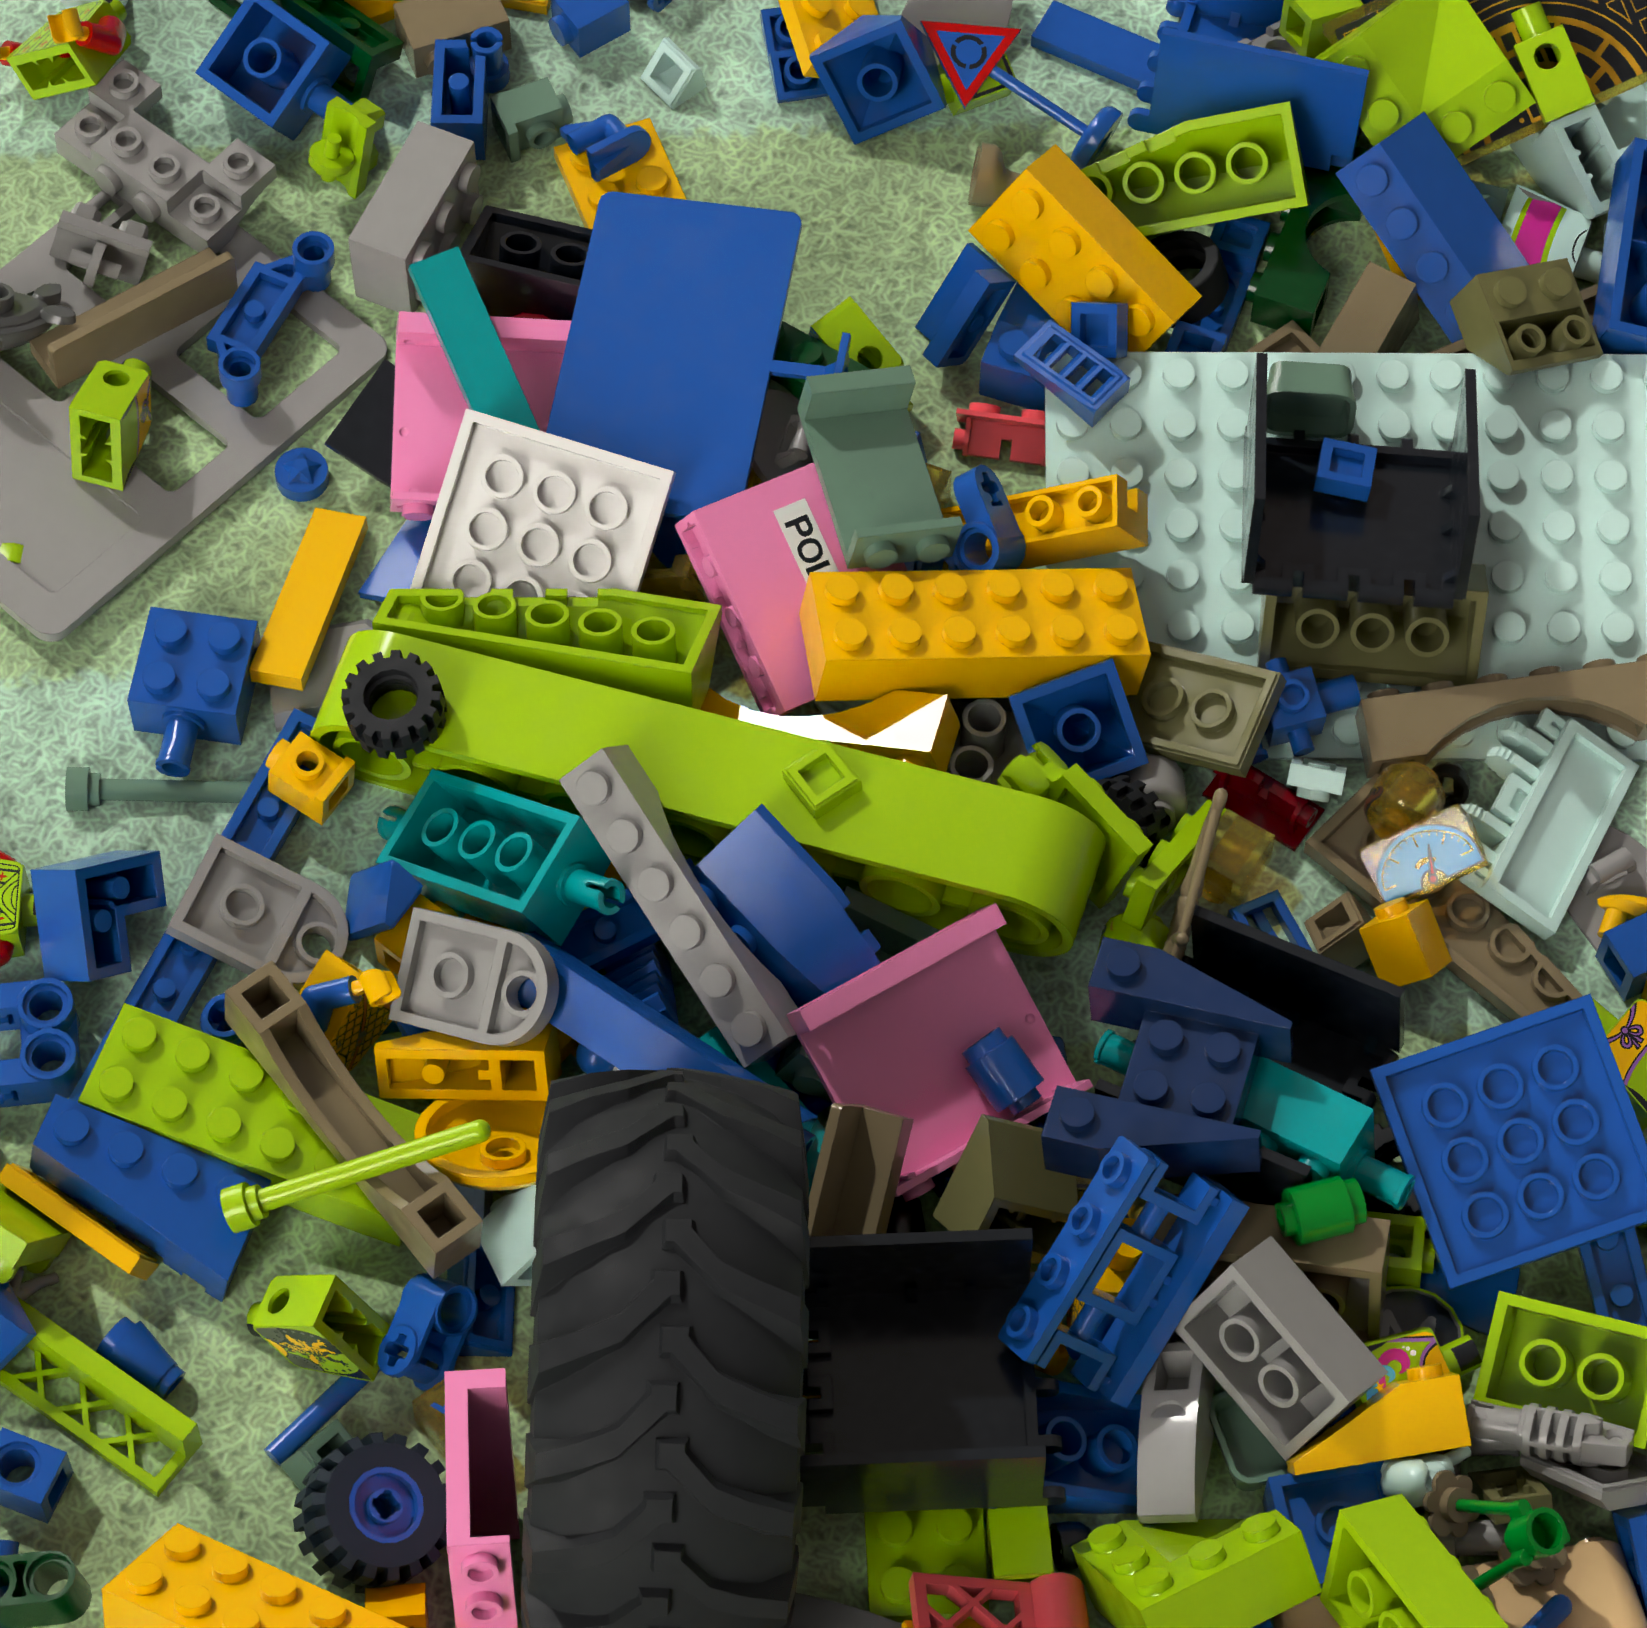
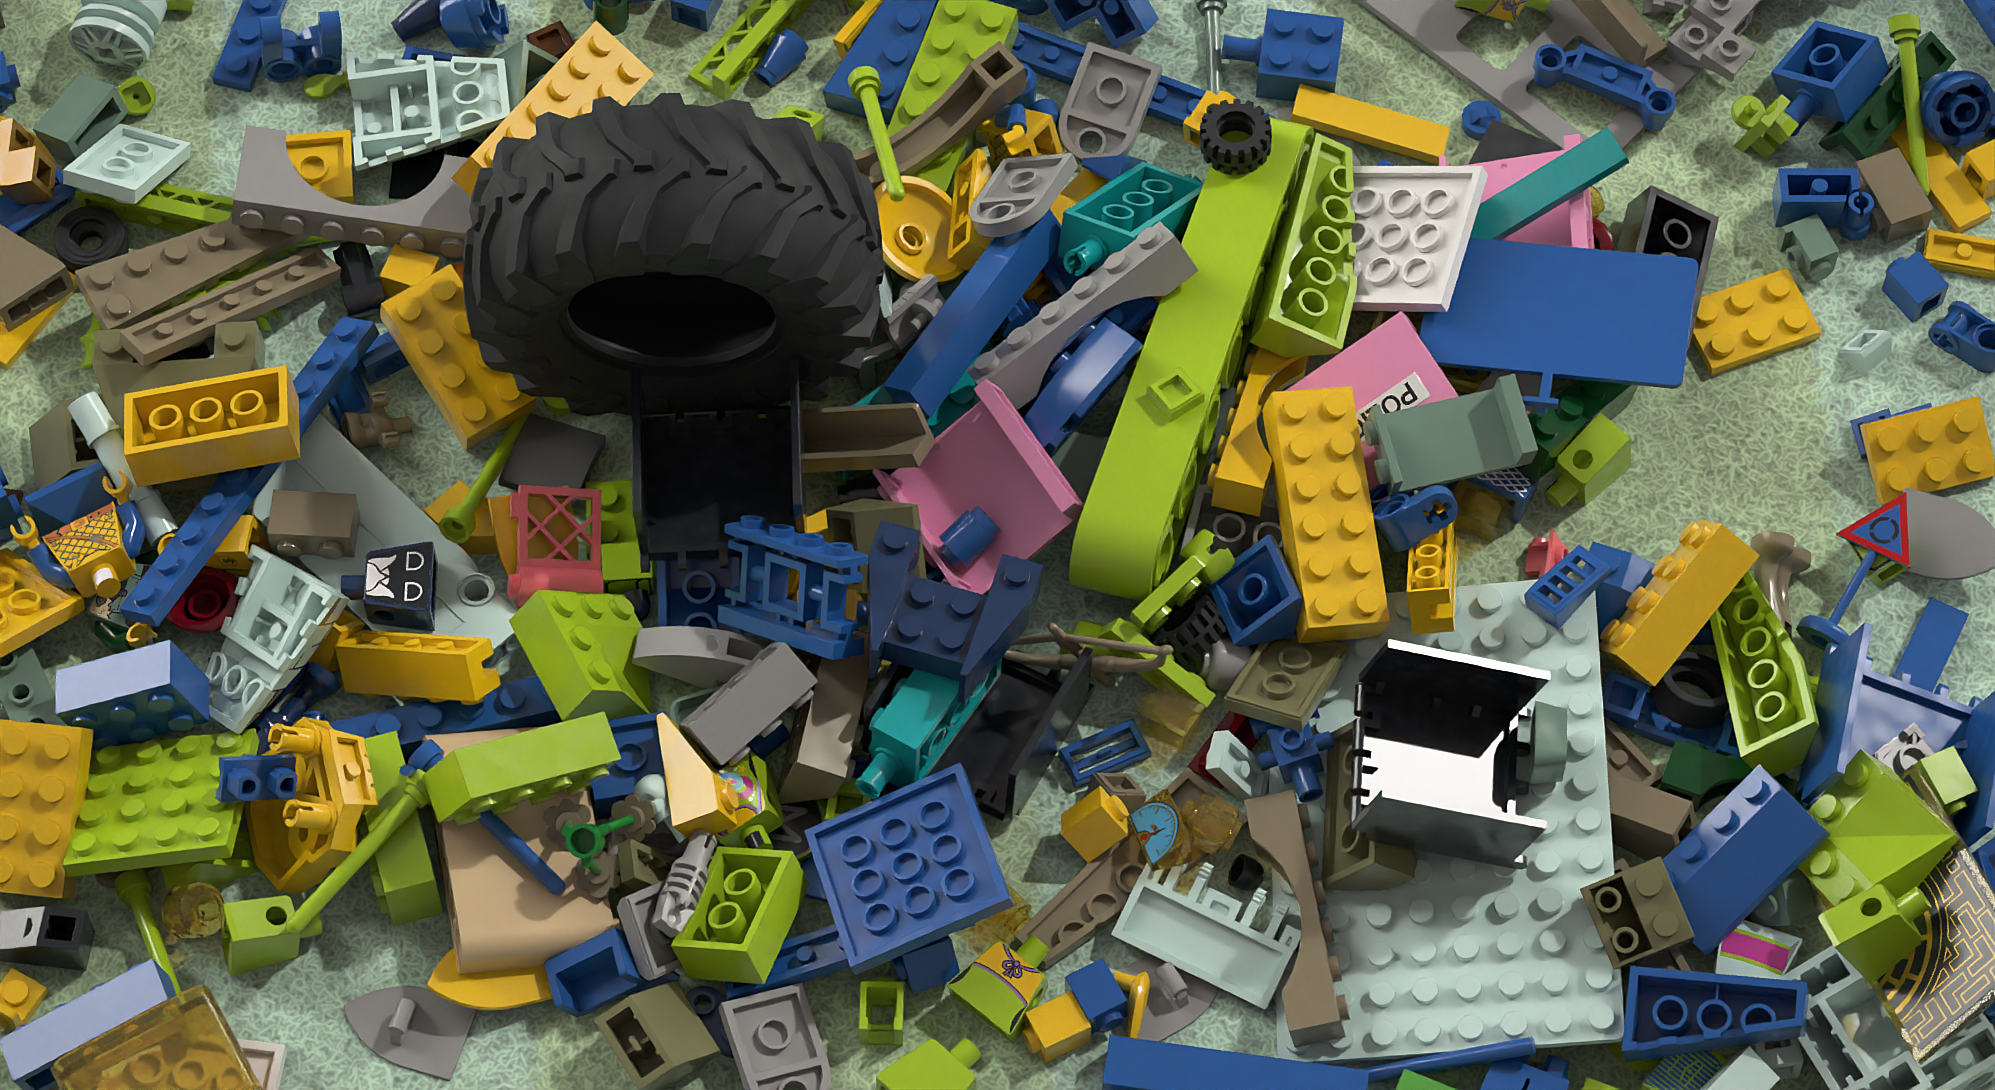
camera: 90 degrees right, 0 degrees up
(414, 215) = (1697, 166): light grey brick -> none
(607, 143) = (1774, 300): blue piece -> none
(879, 75) = (1862, 472): blue slope -> none
(963, 307) = (1641, 534): blue panel -> none
(1101, 327) = (1609, 606): blue plate -> none
(1321, 1210) = (844, 721): green brick -> none
(1345, 469) = (1478, 762): blue plate -> none

